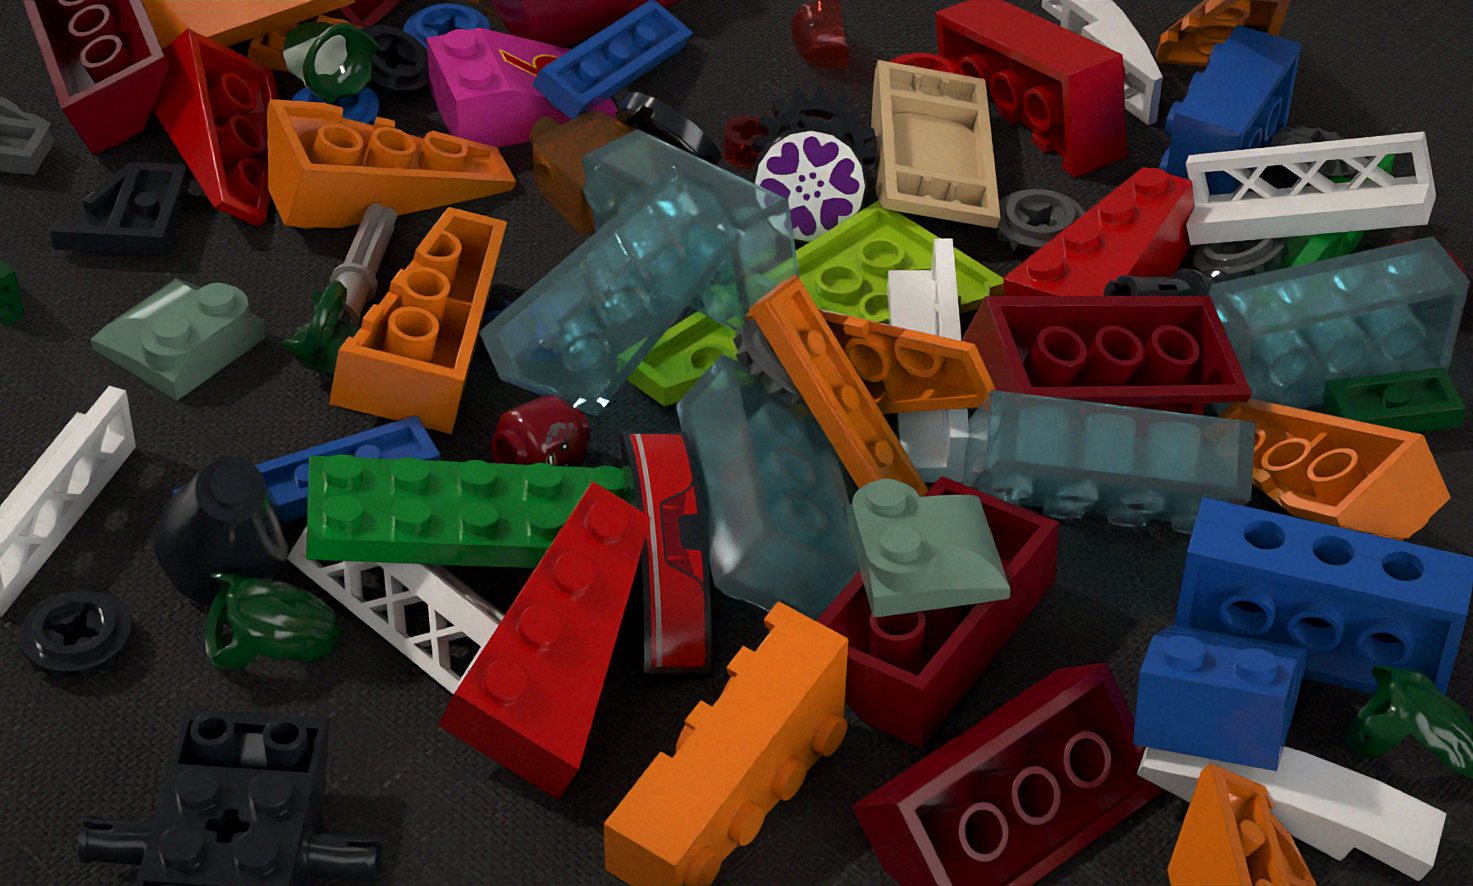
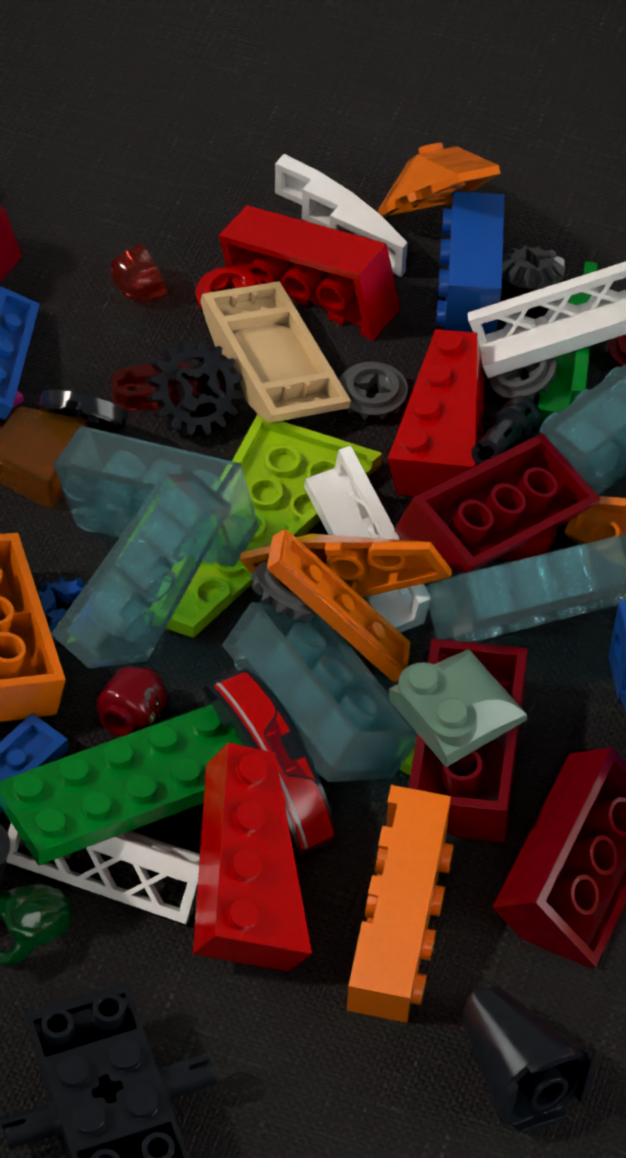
camera: 25 degrees left, 10 degrees up
(816, 175) = (207, 417): tile -> none

